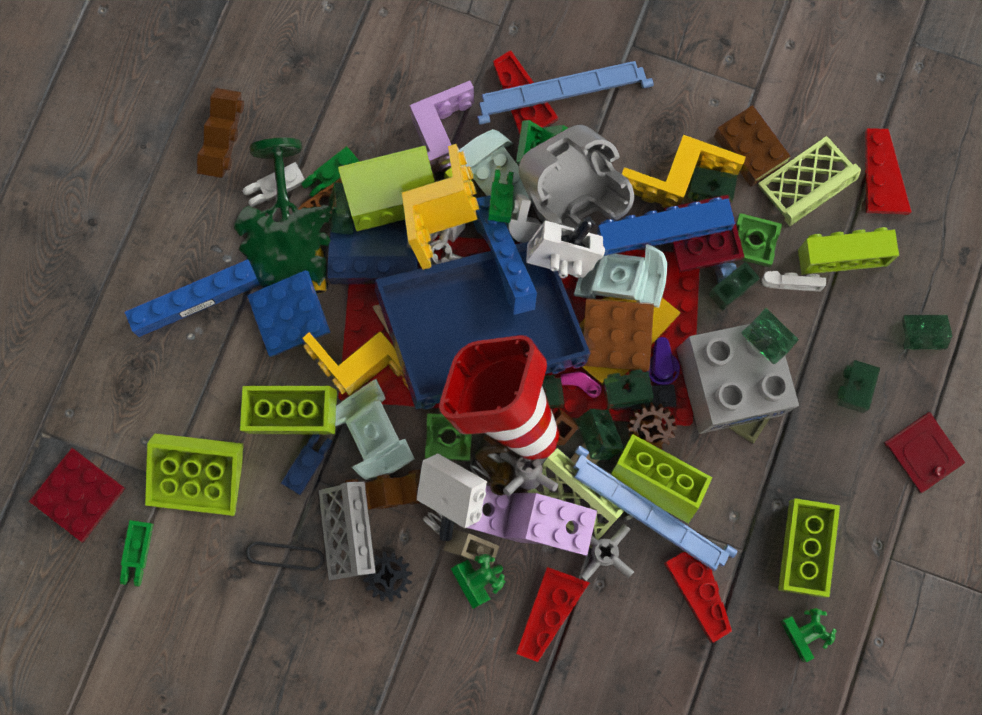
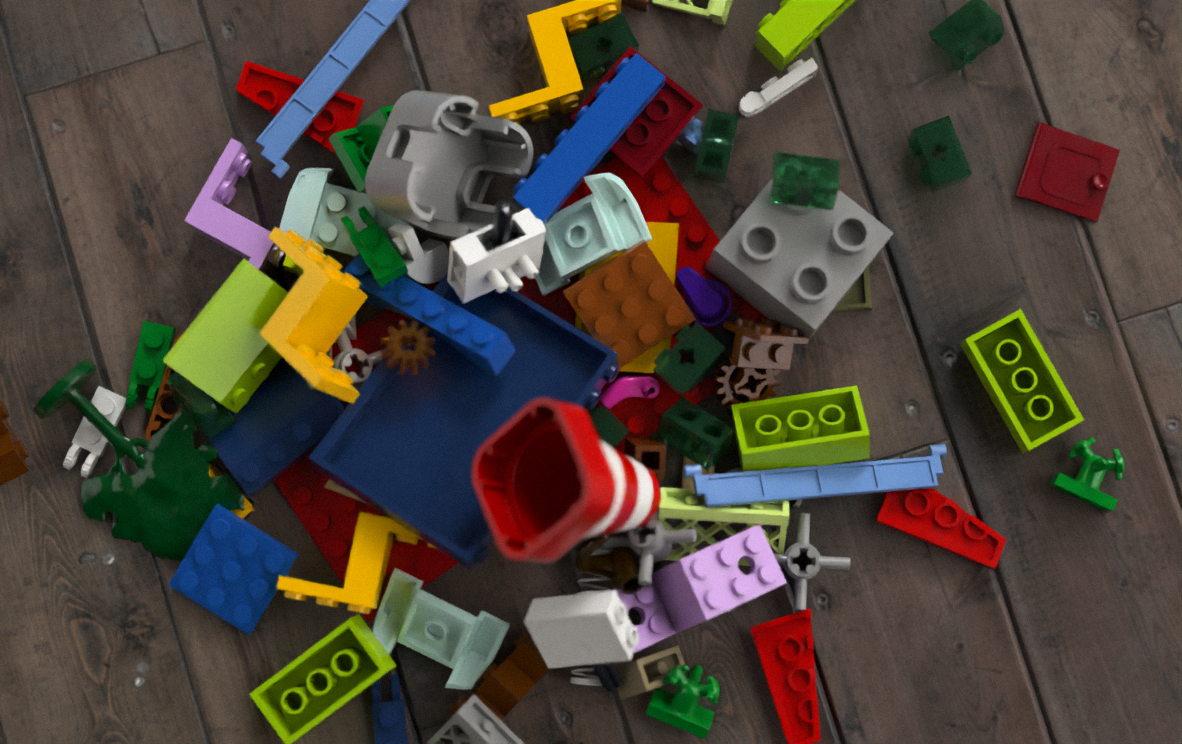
camera: 35 degrees left, 5 degrees up
(192, 298) = (107, 637): blue brick -> none
(456, 451) = (522, 590): bright green brick -> none
(472, 268) = (408, 358): none -> clear orange gear
(677, 413) = (763, 343): none -> reddish brown bracket
(766, 230) = (706, 52): bright green brick -> none

